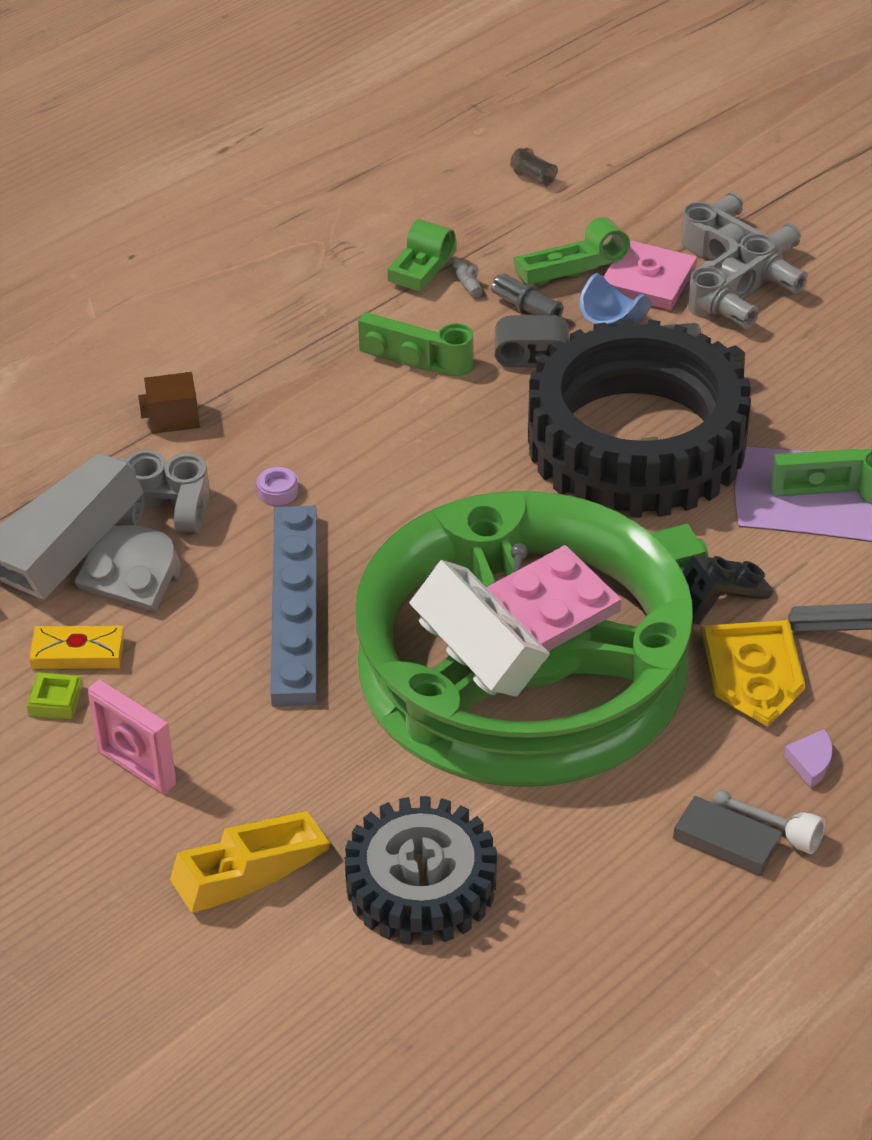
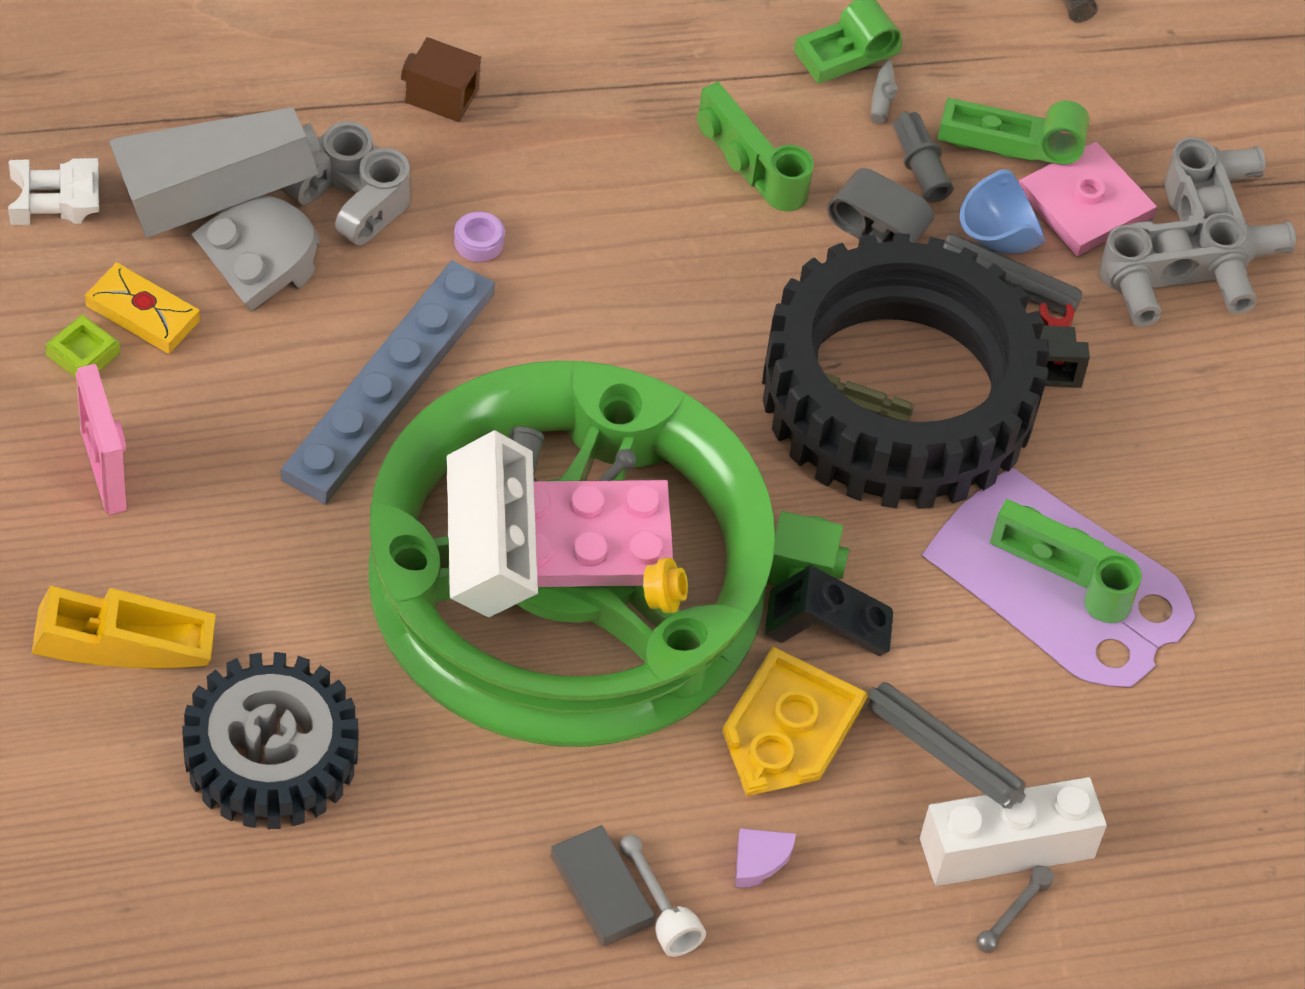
camera: 25 degrees right, 10 degrees up
(626, 606) = (665, 585): none -> yellow plate

